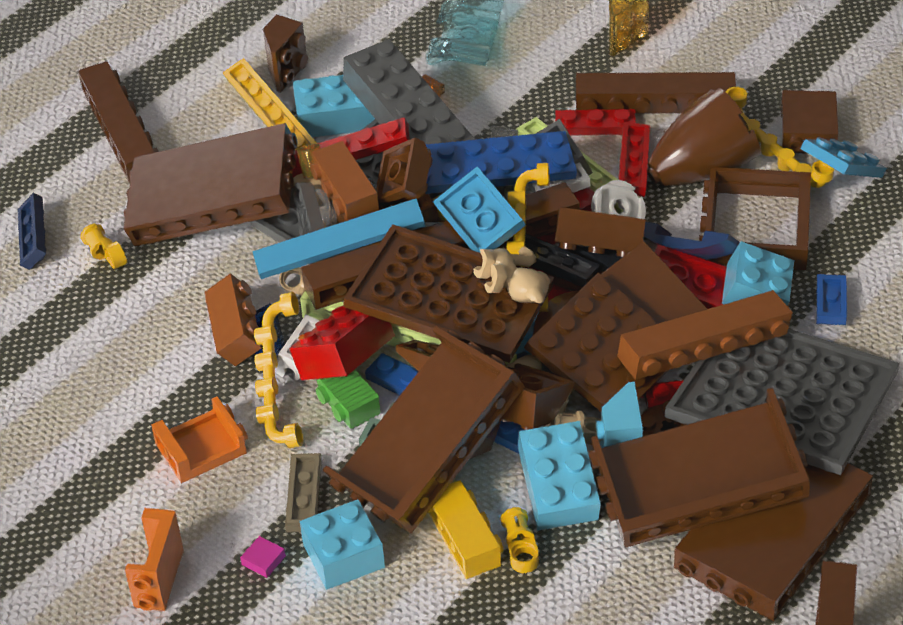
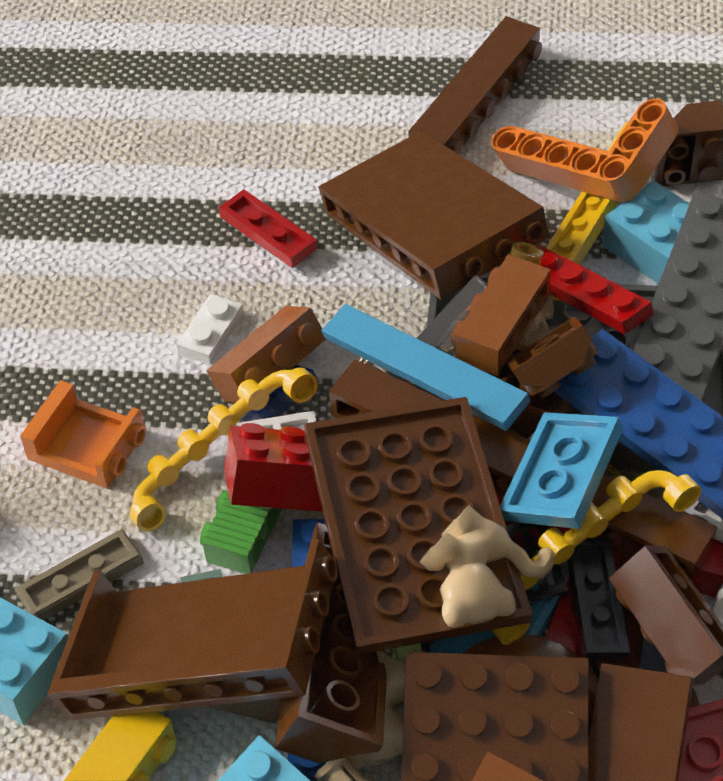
camera: 55 degrees right, 5 degrees up
(31, 231) = (269, 127): dark blue plate -> none
(103, 247) = (293, 189): yellow connector -> none
(121, 275) = (268, 228): none -> red plate
(172, 343) = (210, 329): none -> white plate
(245, 98) = (607, 174): none -> orange beam

